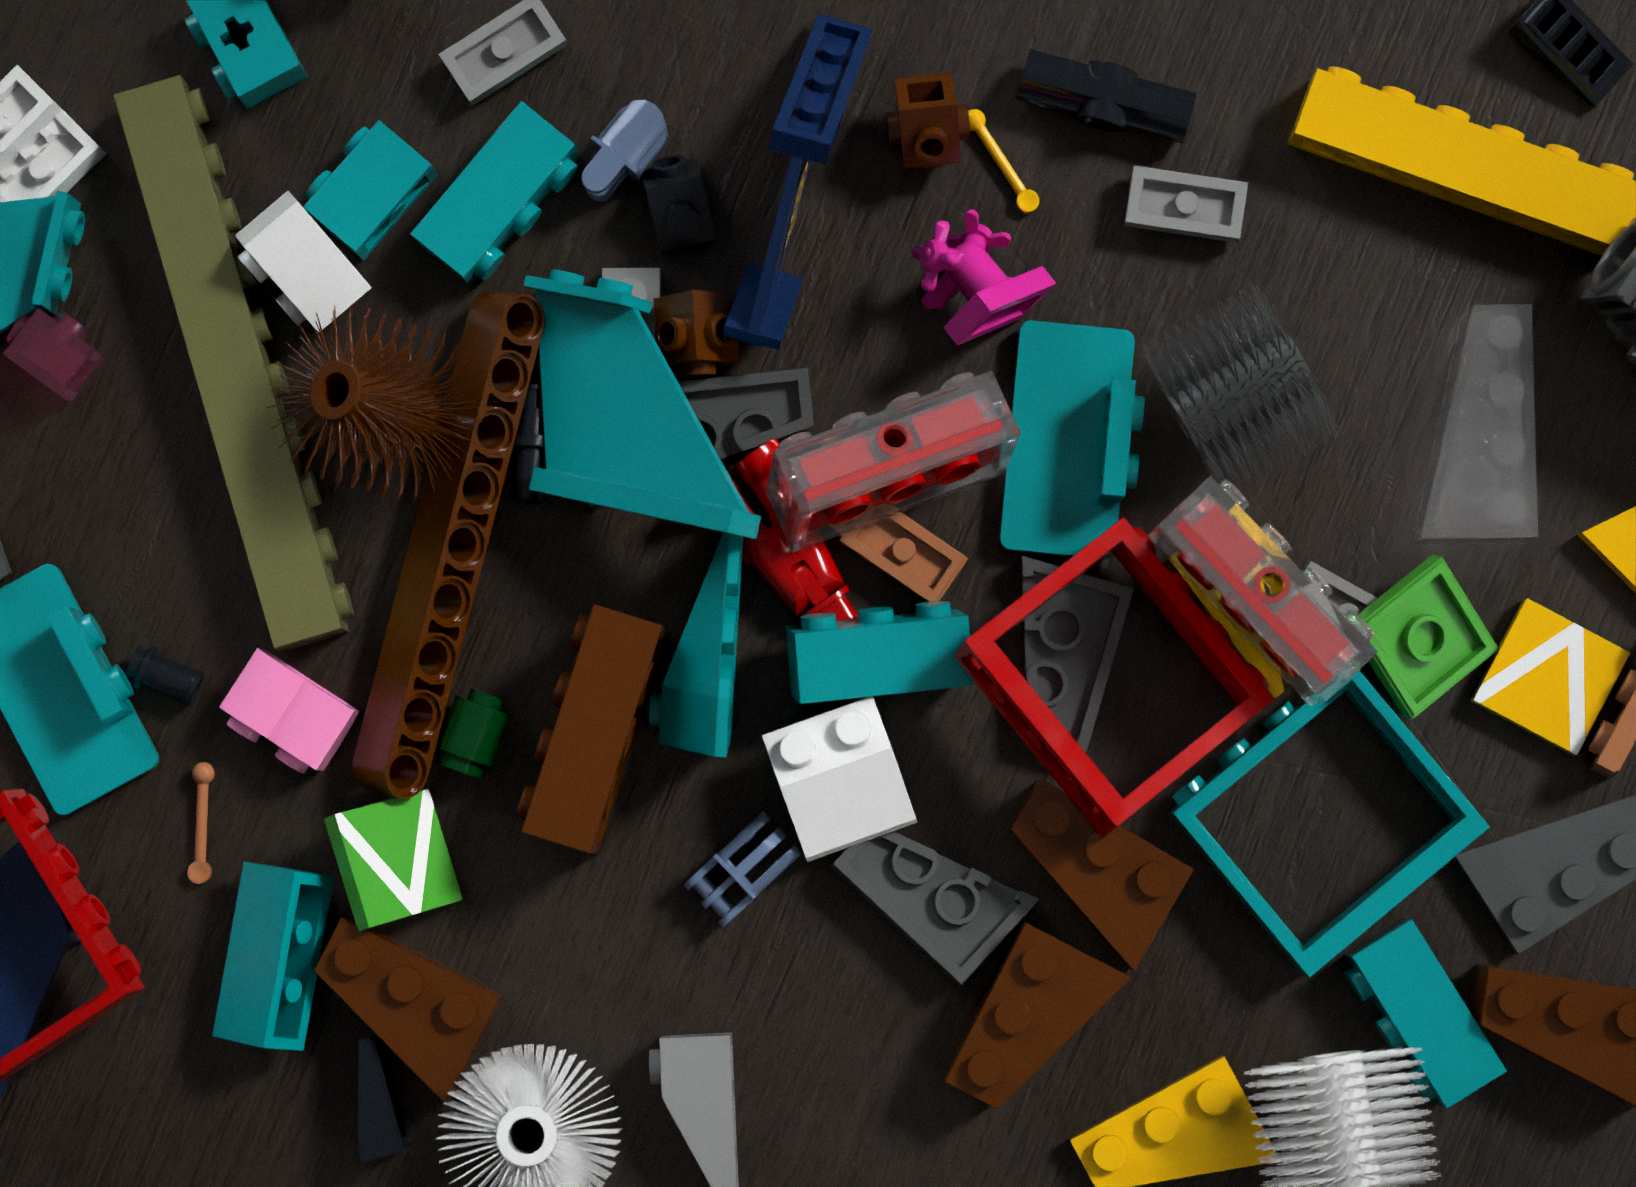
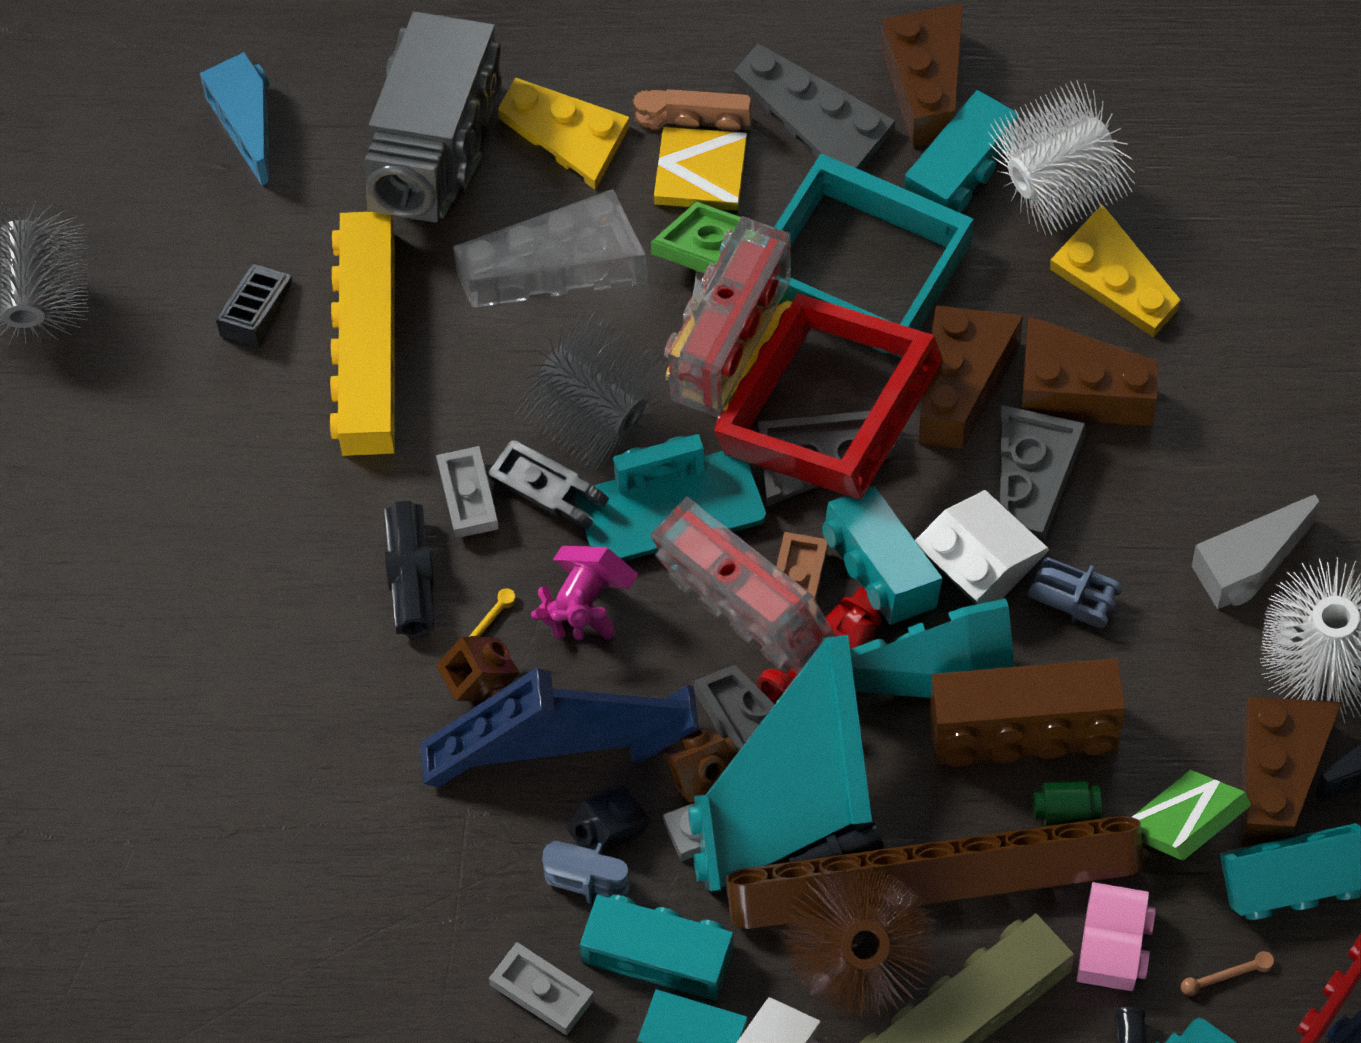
camera: 115 degrees left, 25 degrees down
(1154, 298) = (545, 483): none -> hinge

